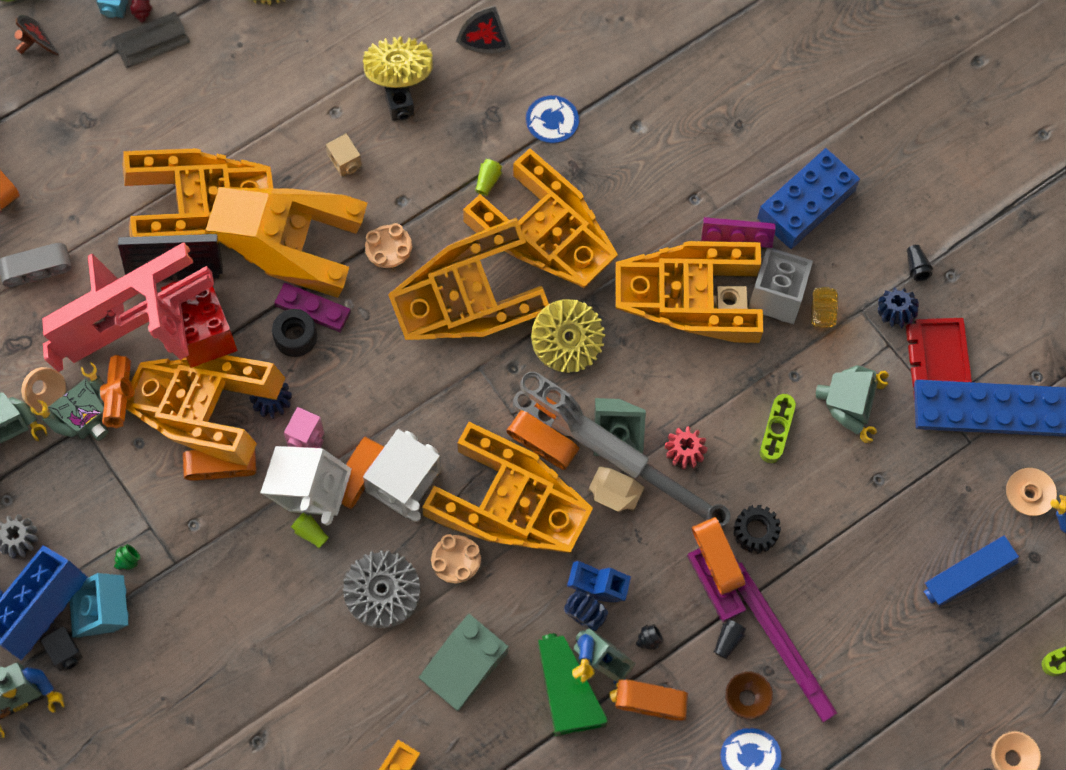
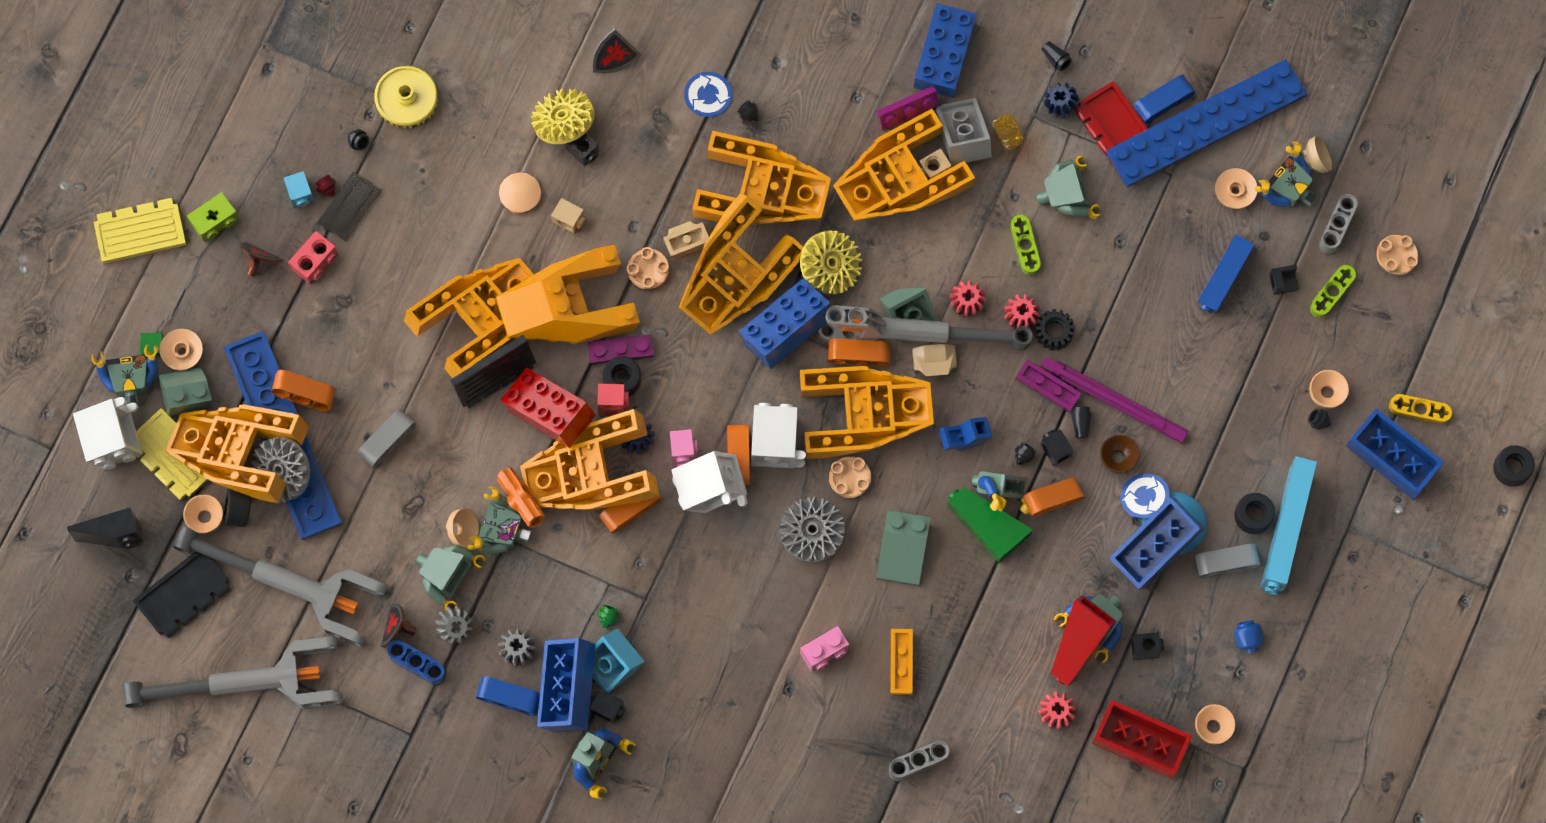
camera: 30 degrees left, 5 degrees up
(81, 60) = (308, 254): none -> coral brick
(100, 315) = (472, 450): coral piece -> none
(266, 345) = (612, 399): none -> coral brick
(308, 529) = (730, 518): lime cone -> none
(314, 111) = (520, 192): none -> light nougat dish
(316, 720) = (824, 649): none -> bright pink brick
(437, 235) = (685, 239): none -> tan slope
(485, 370) = (786, 323): none -> blue brick
(488, 176) = (689, 168): lime cone -> none
(580, 154) = (748, 111): none -> black plate
(585, 610) = (968, 460): dark blue gear -> none
(686, 649) = (1056, 447): none -> black brick
(718, 556) = (1040, 365): orange beam -> none
(729, 484) = (1014, 309): none -> coral gear
(1006, 362) = (1164, 98): none -> blue beam
(1030, 613) = (1284, 279): none -> black panel

